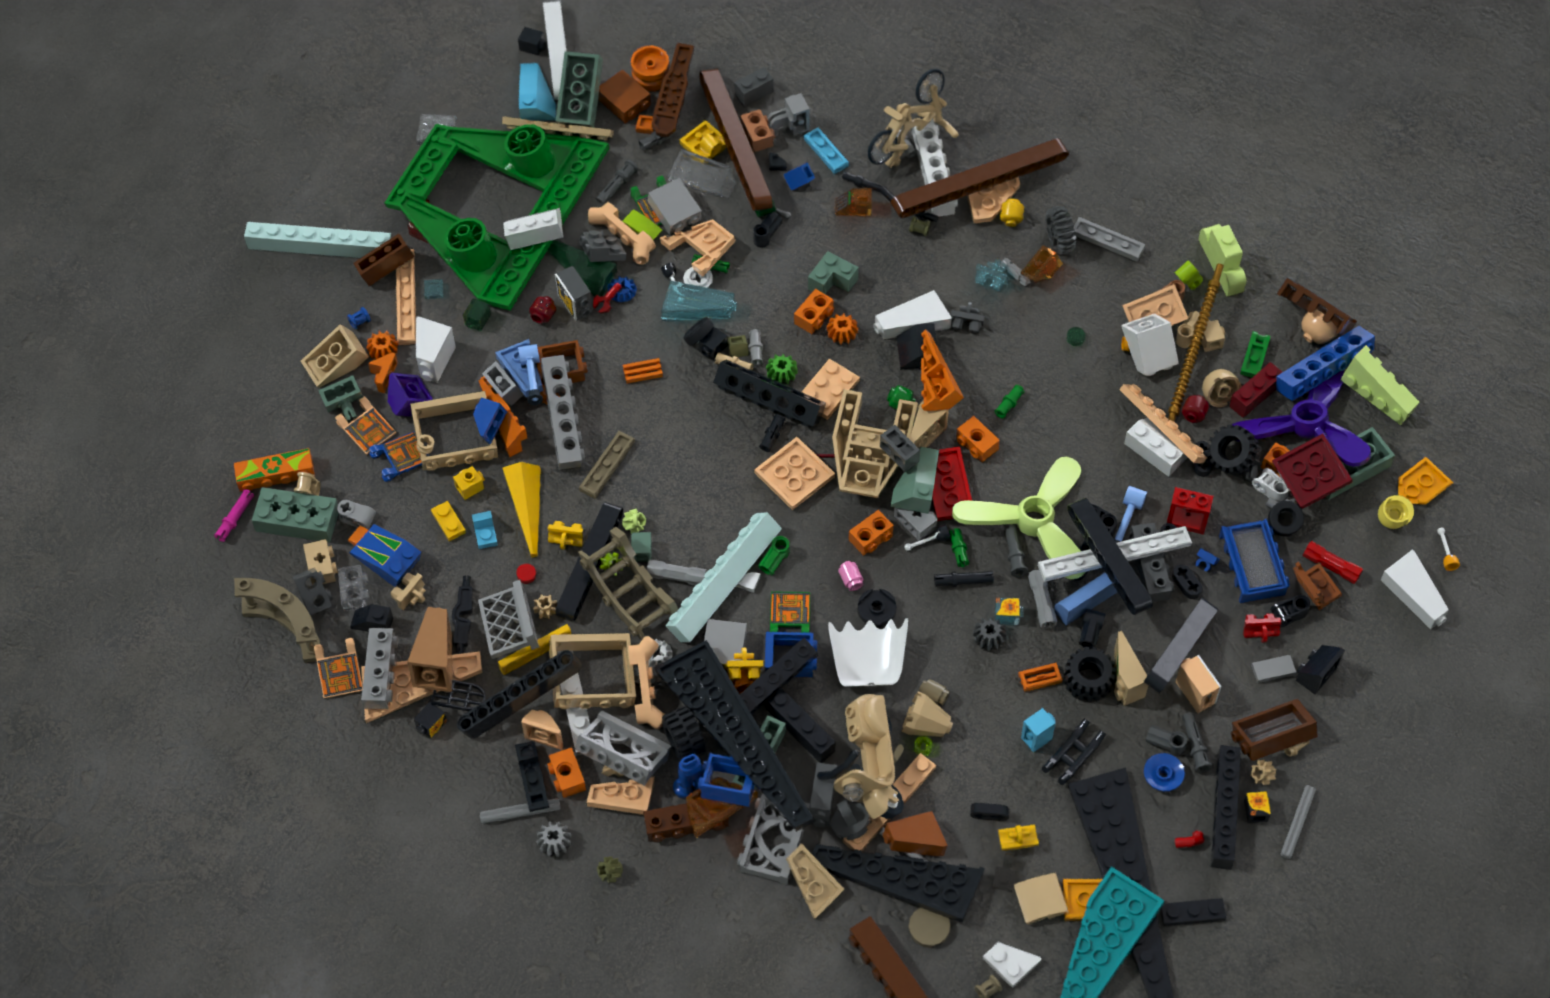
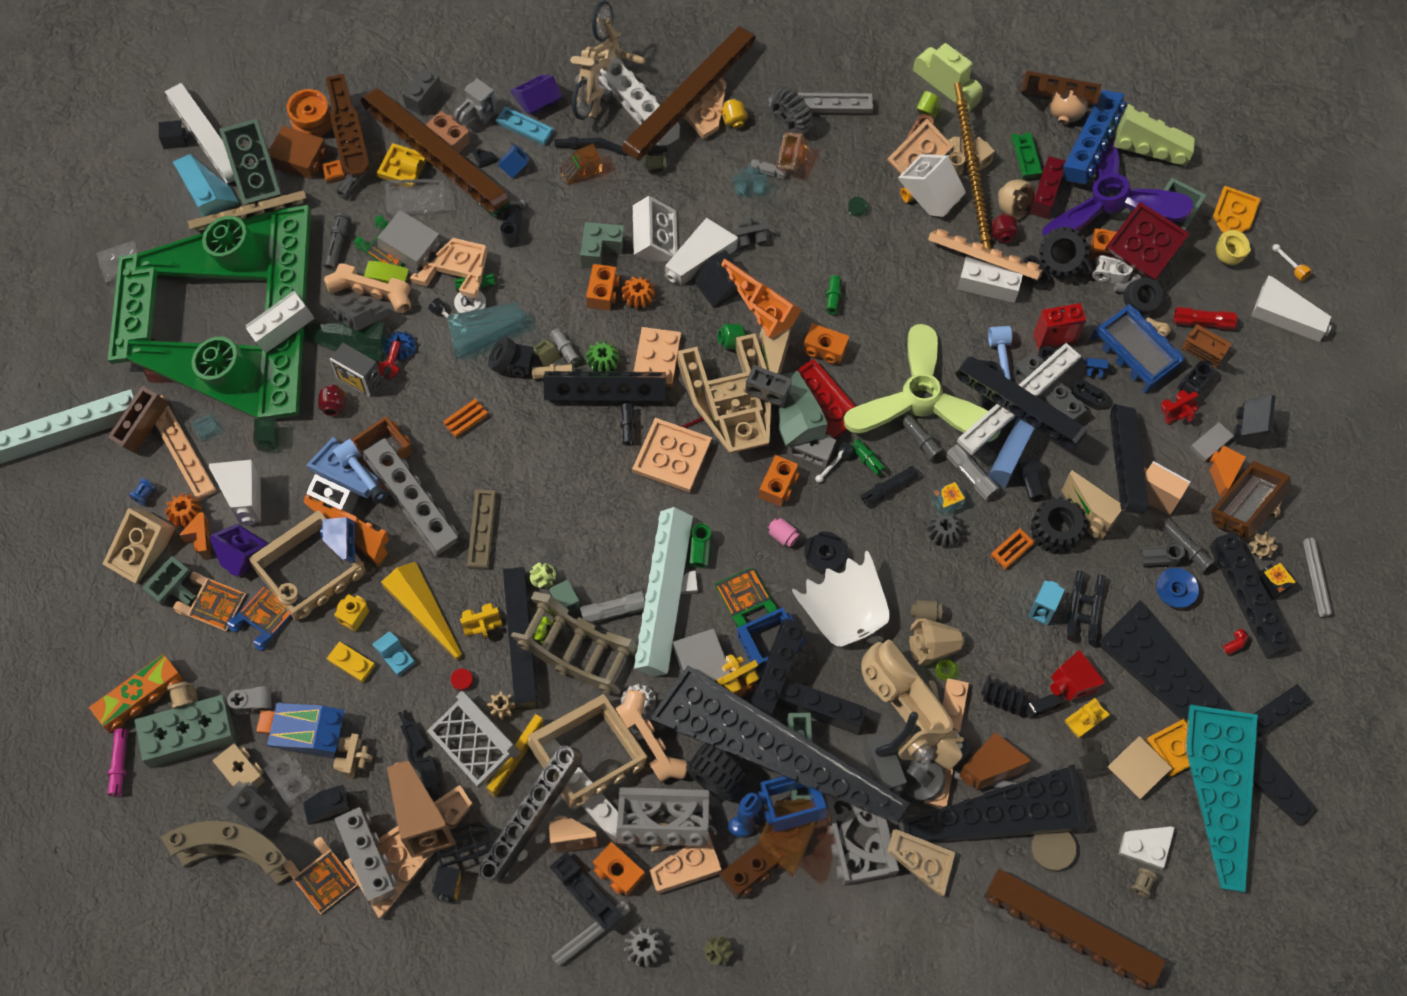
camera: 30 degrees left, 5 degrees up
(850, 127) = (537, 93): none -> dark purple slope
(885, 283) = (654, 230): none -> white slope
(958, 789) = (1004, 695): none -> black piece
(1027, 802) = (1076, 678): none -> red torso
(1272, 693) = (1225, 468): none -> orange slope
(1286, 553) = (1162, 328): none -> tan arm

